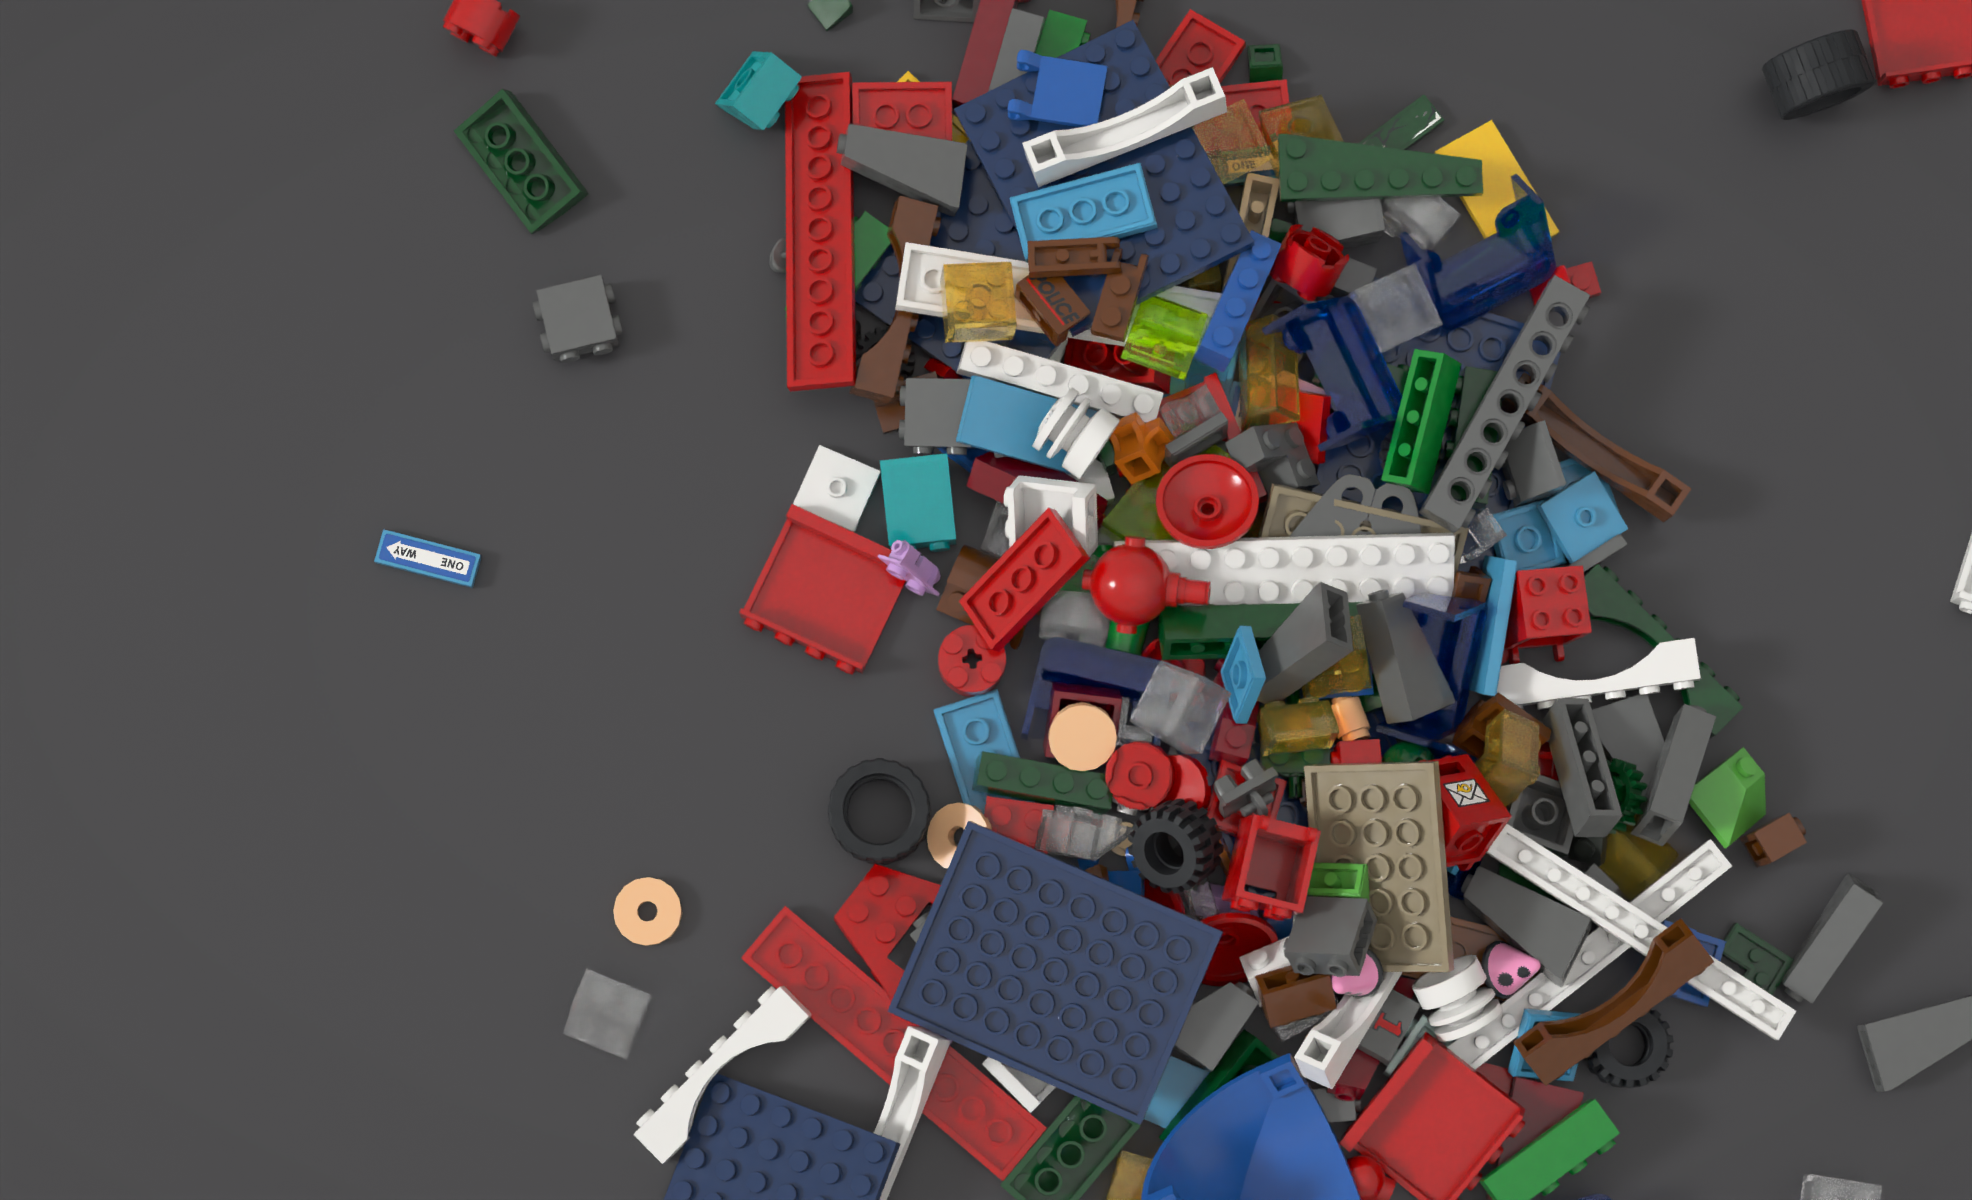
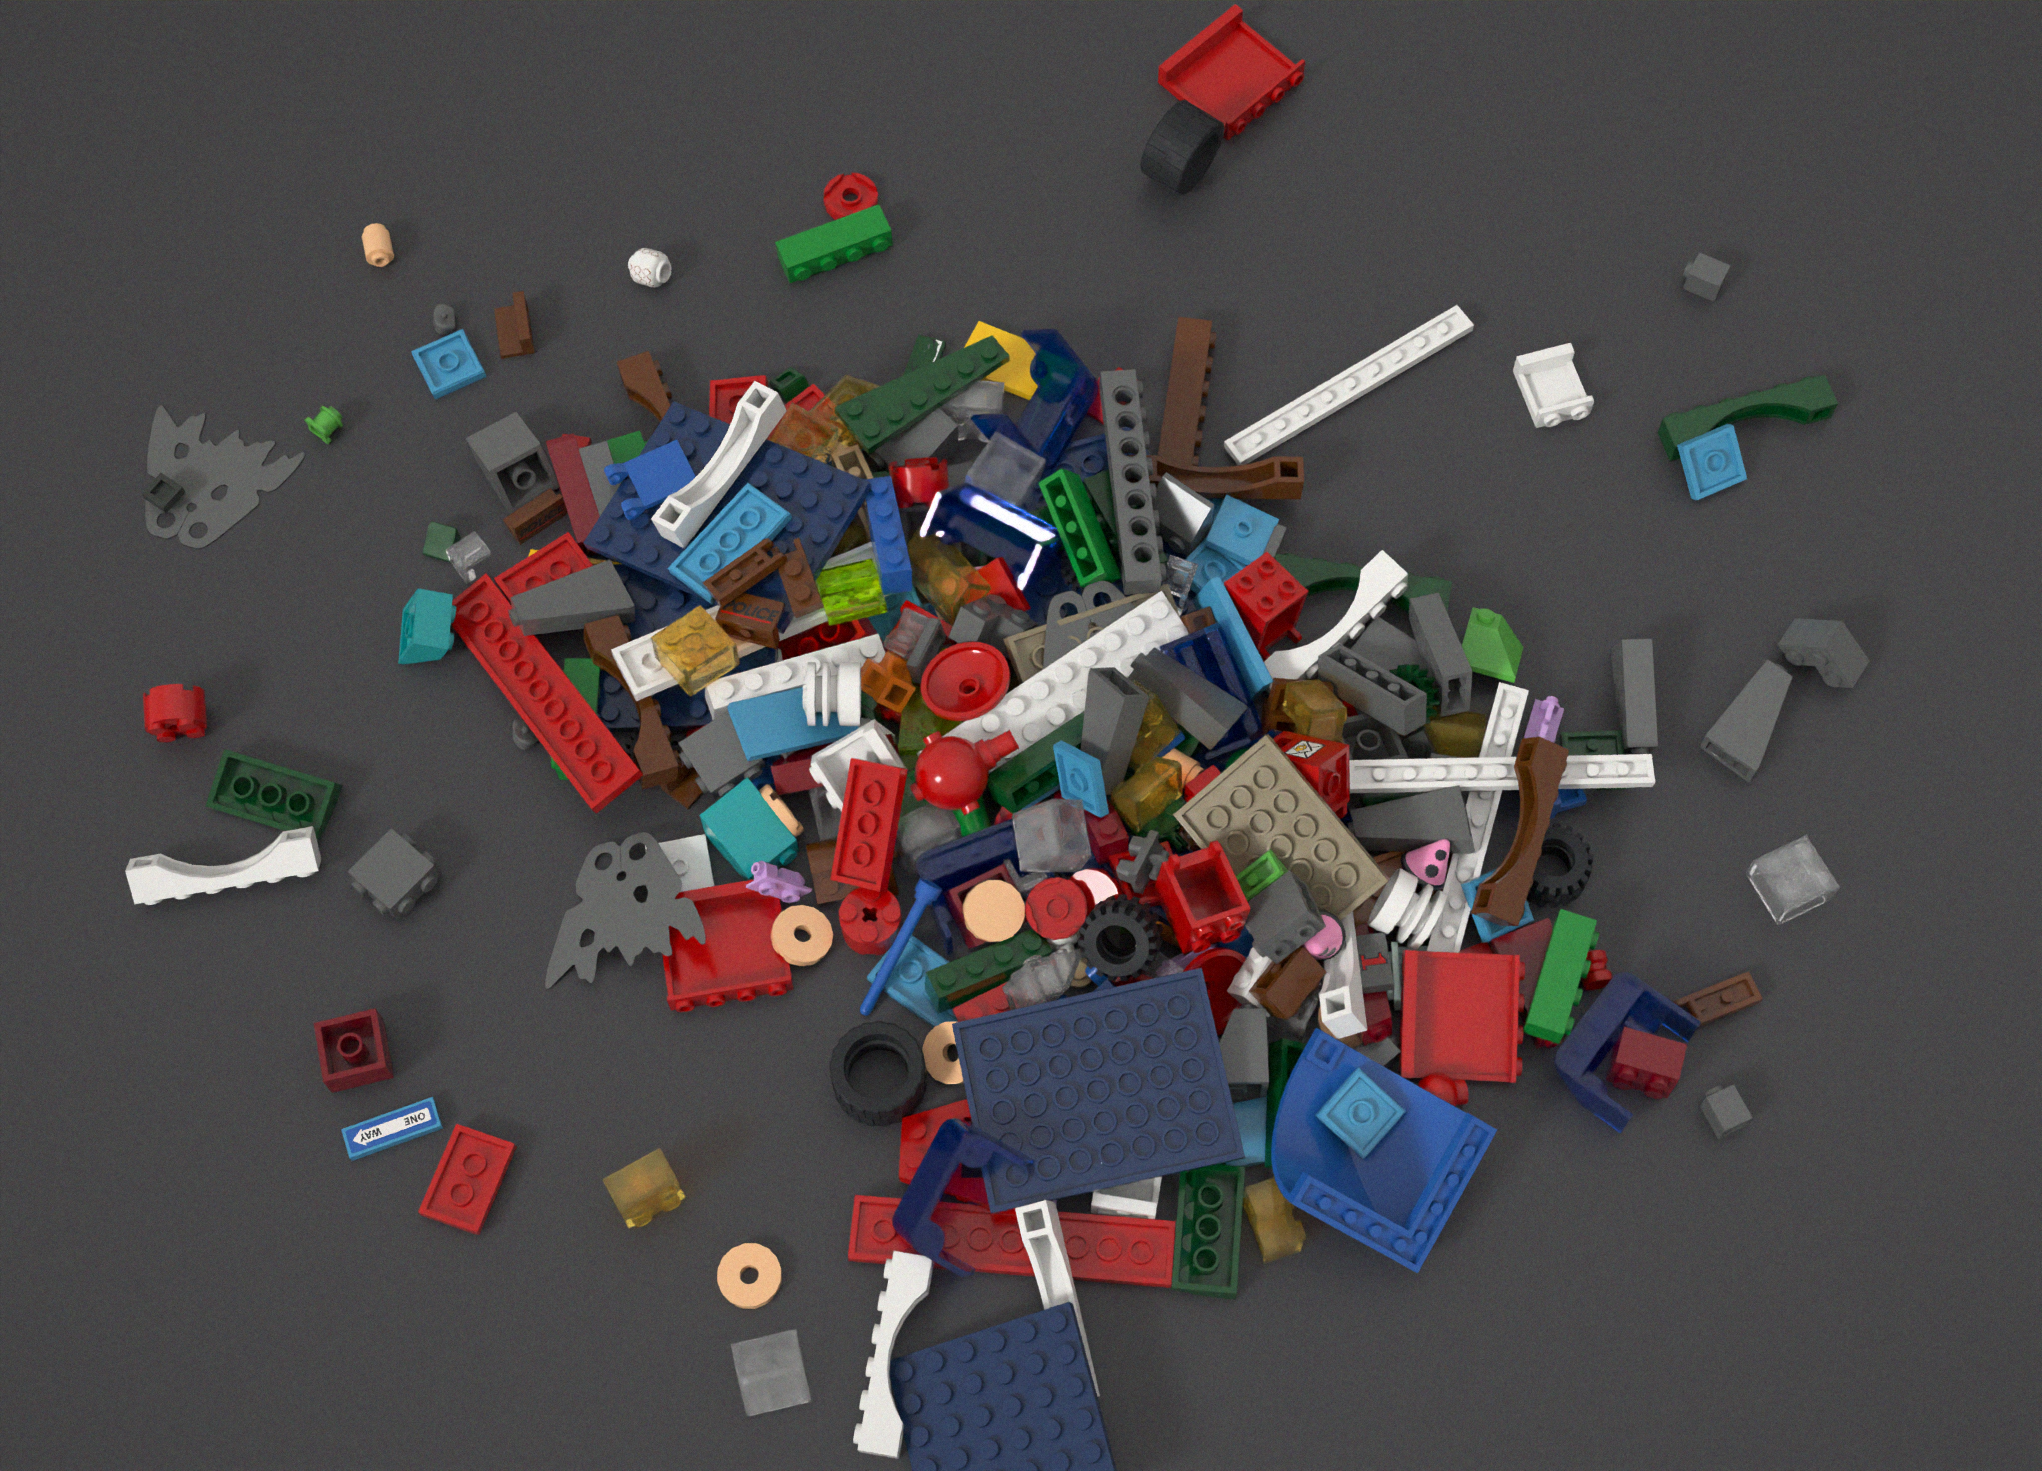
camera: 30 degrees left, 15 degrees down
(374, 180) = (162, 877): none -> white arch
(437, 465) = (353, 1050): none -> dark red brick
(462, 652) = (467, 1179): none -> red plate
(605, 774) = (644, 1189): none -> clear yellow brick
(748, 495) = (616, 914): none -> dark grey piece
(846, 39) = (466, 554): none -> clear panel
(896, 935) = (953, 1143): none -> clear blue windscreen
(920, 625) = (806, 919): none -> light nougat tile
(935, 38) = (535, 516): none -> reddish brown panel
(961, 500) = (781, 810): none -> light nougat tile
(1031, 680) = (925, 894): none -> blue piece
(1276, 1152) = (1360, 1113): none -> dark azure plate
(1591, 1173) = (1598, 975): none -> red wheel
(1633, 336) = (1186, 391): none -> reddish brown brick
(1721, 906) = (1544, 719): none -> lavender hinge
(1774, 839) = (1543, 654): reddish brown brick -> none
(1800, 435) = (1348, 386): none -> white plate

